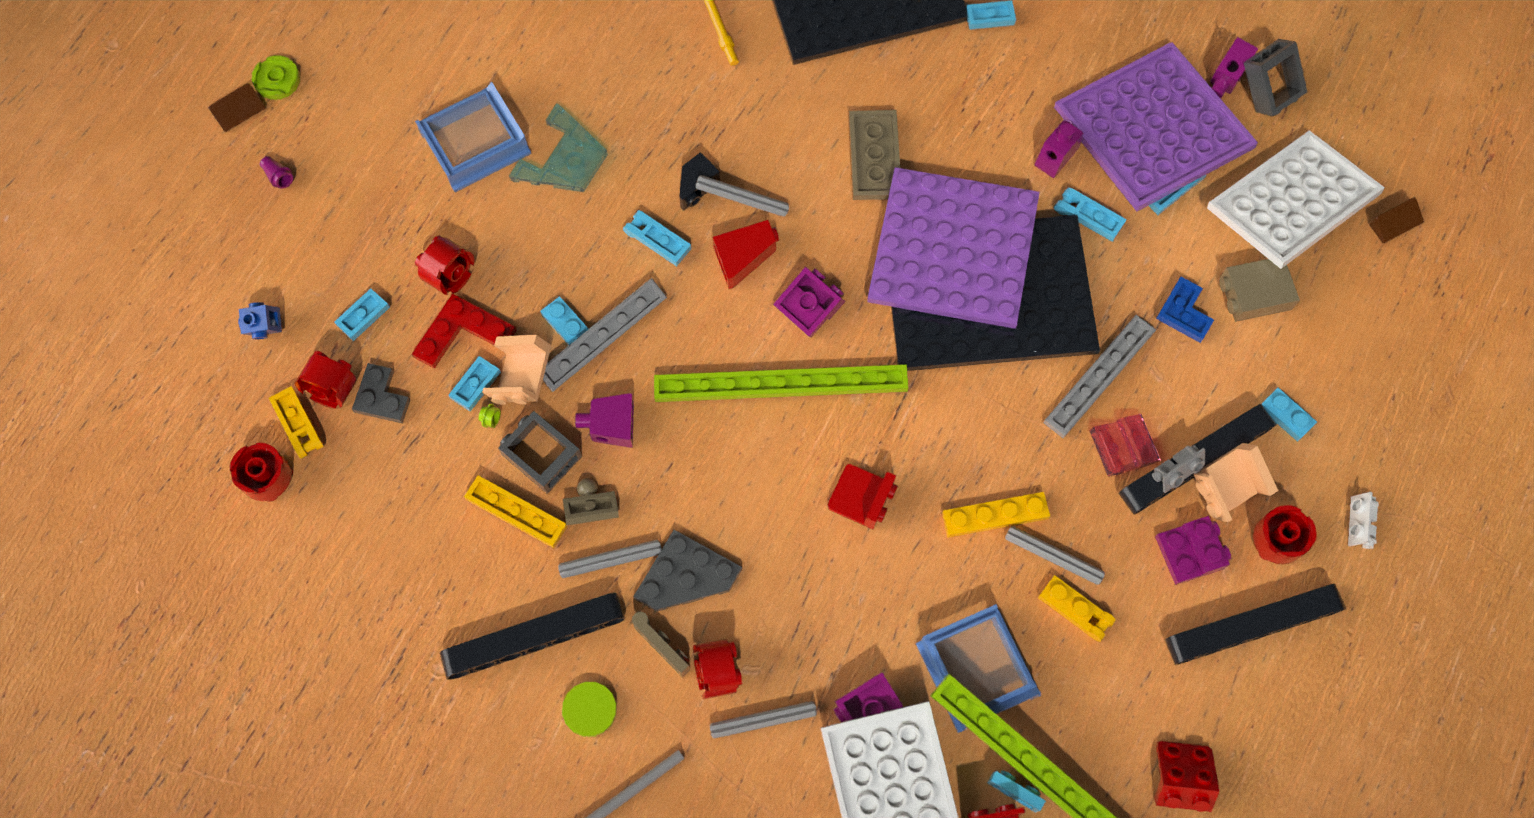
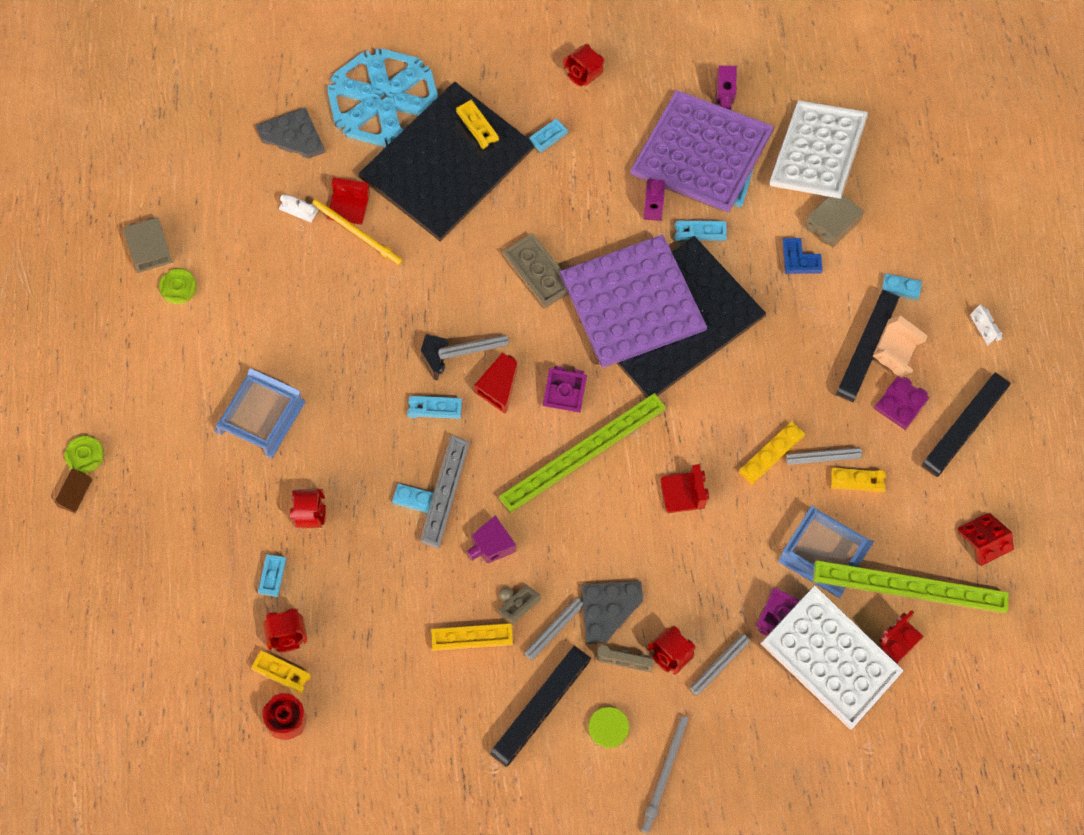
camera: 35 degrees left, 5 degrees down
(259, 320) = (212, 619): blue brick -> none
(278, 174) = (139, 518): magenta cone -> none
(374, 398) = (324, 626): dark grey plate -> none
(453, 317) = (345, 534): red plate -> none
(470, 387) = (383, 573): medium azure plate -> none
(489, 416) = (409, 588): lime plate -> none
(522, 369) = (409, 545): light nougat panel -> none
(557, 469) = (459, 606): dark grey window -> none
(571, 162) = (339, 390): clear light blue wing -> none
(1026, 796) = (890, 608): medium azure plate -> none
(1099, 376) = (775, 330): light grey tile -> none
(1124, 445) = (819, 363): clear pink slope -> none
(1189, 461) = (862, 363): light grey hinge -> none
(1256, 68) = (749, 63): dark grey window -> none
(1284, 535) = (948, 360): red brick -> none
(1397, 220) = (887, 128): reddish brown slope -> none

